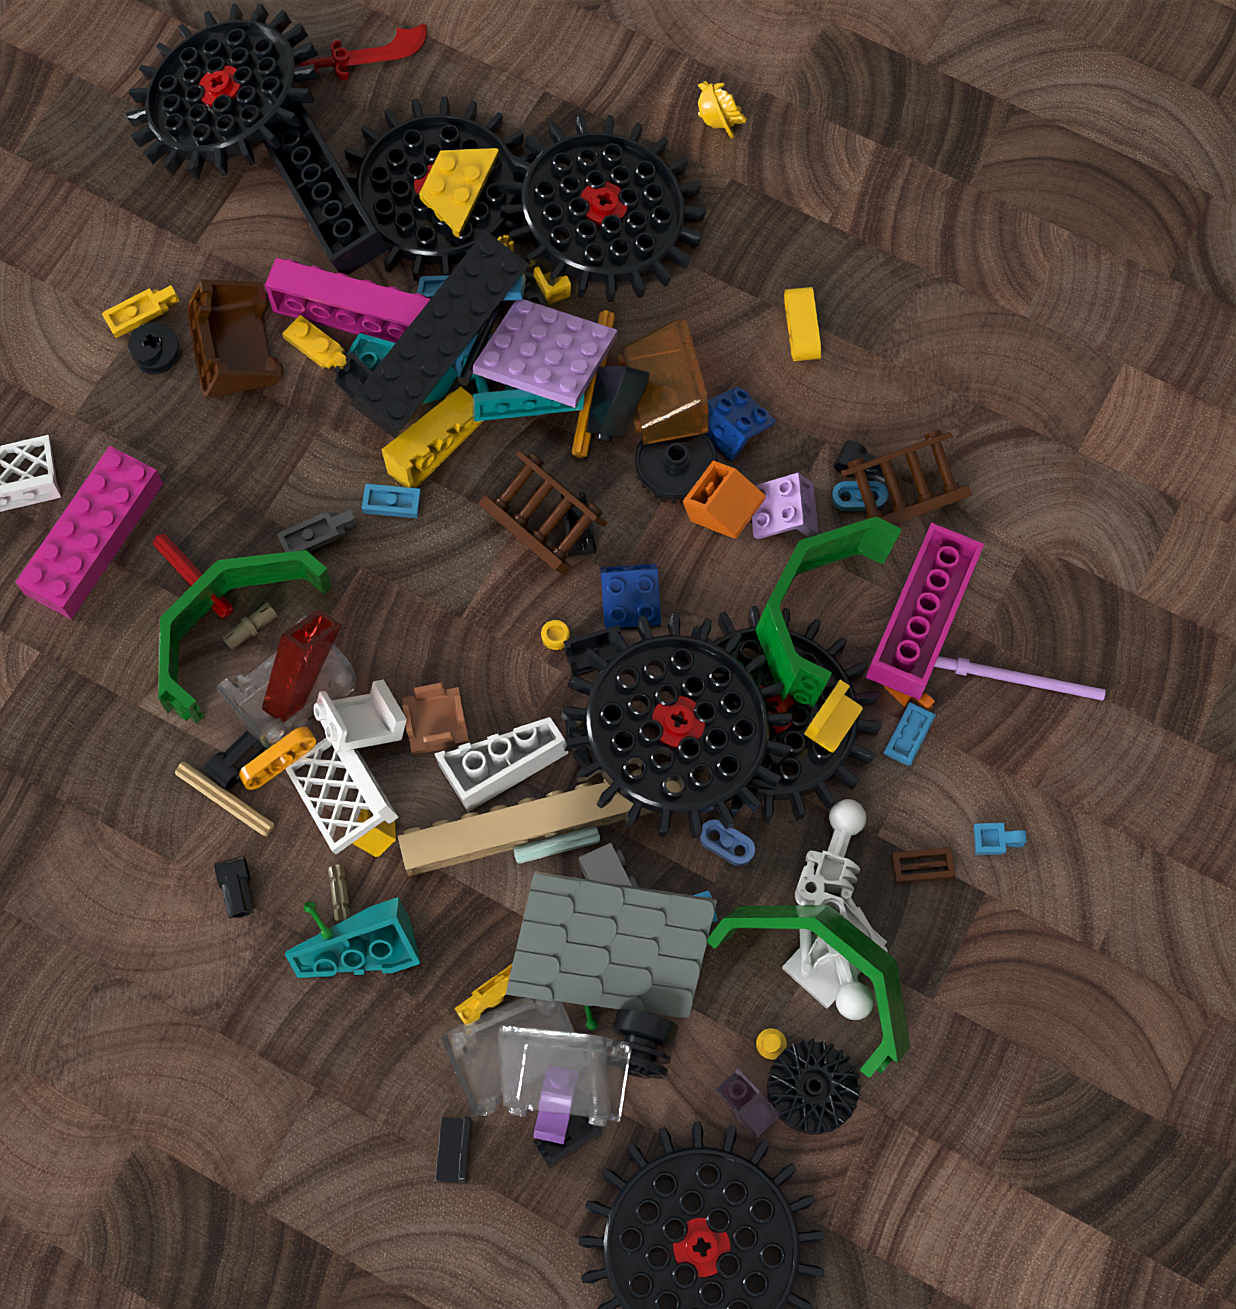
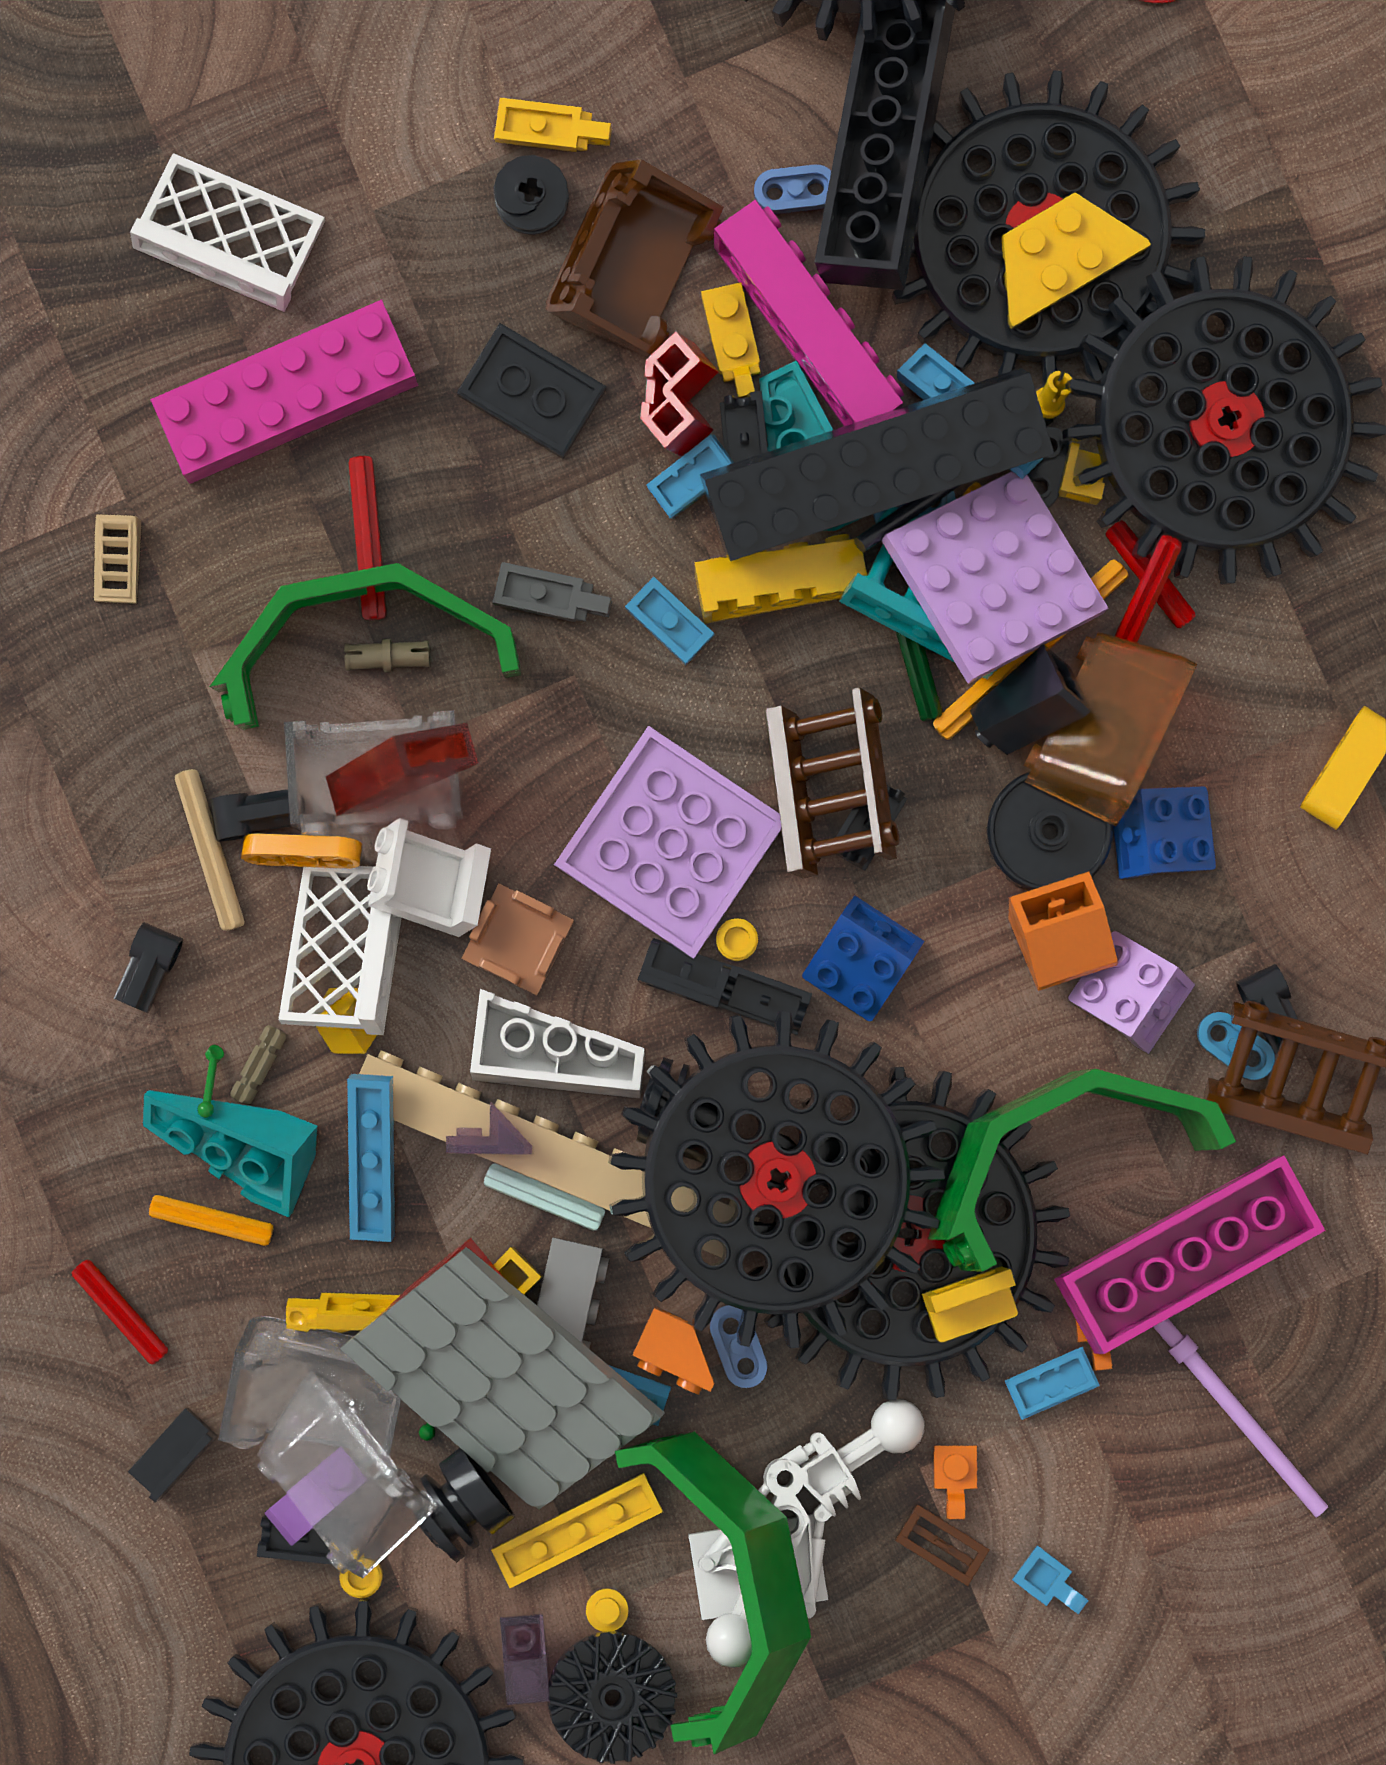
camera: 40 degrees right, 15 degrees up
(46, 668) = (132, 542): none -> tan slope
(227, 443) = (531, 390): none -> black tile
(292, 248) = (794, 188): none -> medium blue plate
(301, 378) = (673, 379): none -> red brick
(345, 425) = (681, 482): none -> dark azure plate
(361, 1092) = (119, 1312): none -> red axle
(376, 999) = (211, 1220): none -> light orange axle
(442, 890) = (371, 1157): none -> dark azure plate
(480, 610) = (670, 842): none -> lavender plate
(509, 822) = (502, 1138): none -> clear purple slope
(541, 672) = (678, 974): none -> black hinge
(544, 434) = (920, 678): none -> dark green axle
(617, 1136) = (362, 1587): none -> yellow tile
(625, 307) = (1170, 598): none -> red axle
(630, 304) = (1149, 588): none -> red axle
(695, 865) = (674, 1346): none -> orange slope
(718, 1012) = (577, 1530): none -> yellow plate
(898, 821) = (955, 1470): none -> orange plate

